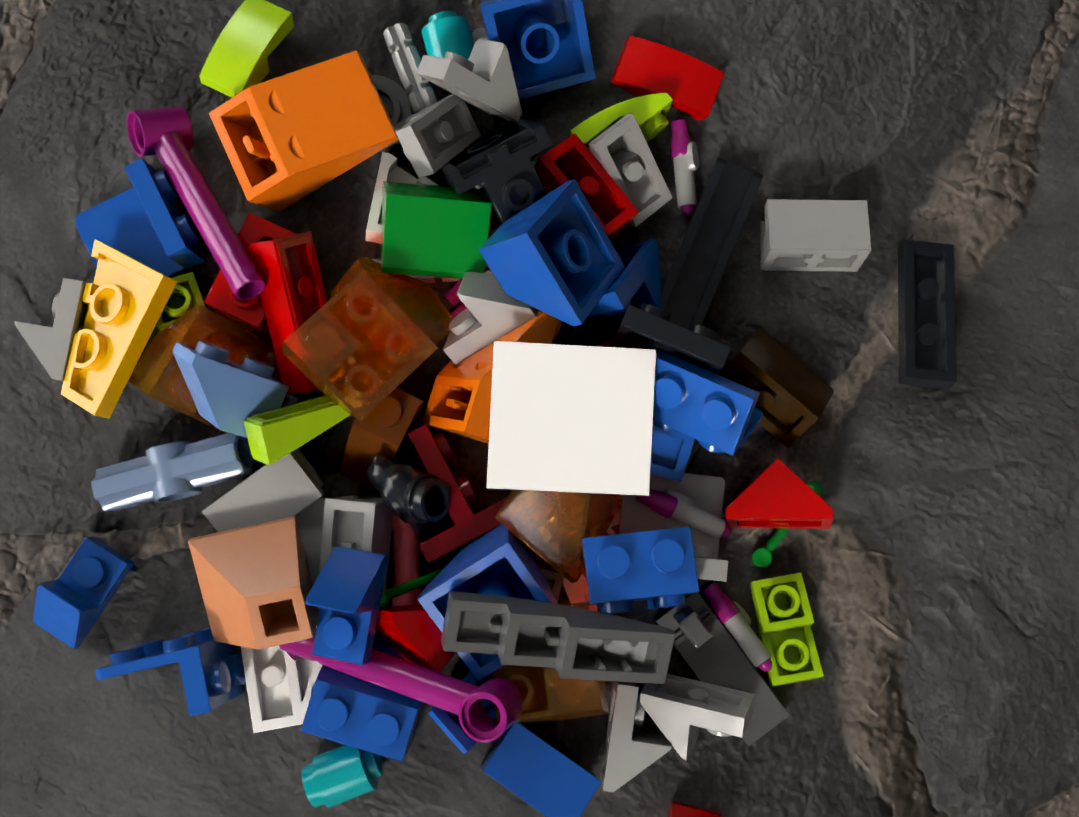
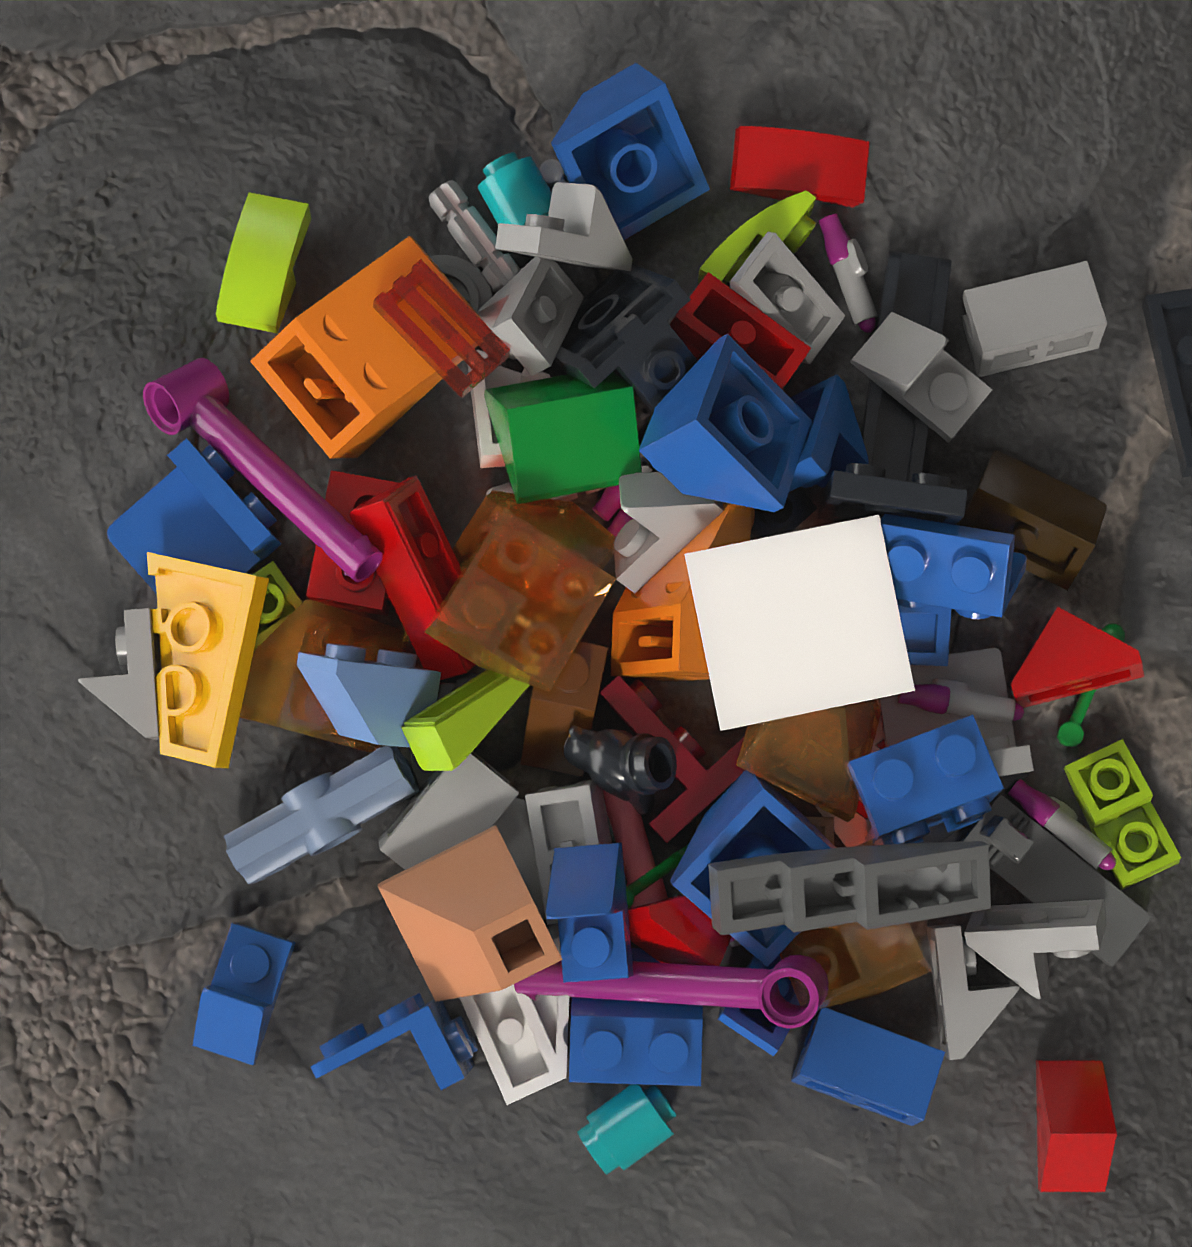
camera: 10 degrees left, 0 degrees up
(340, 87) = (429, 281): none -> clear red tile
(718, 255) = (921, 375): none -> light grey slope

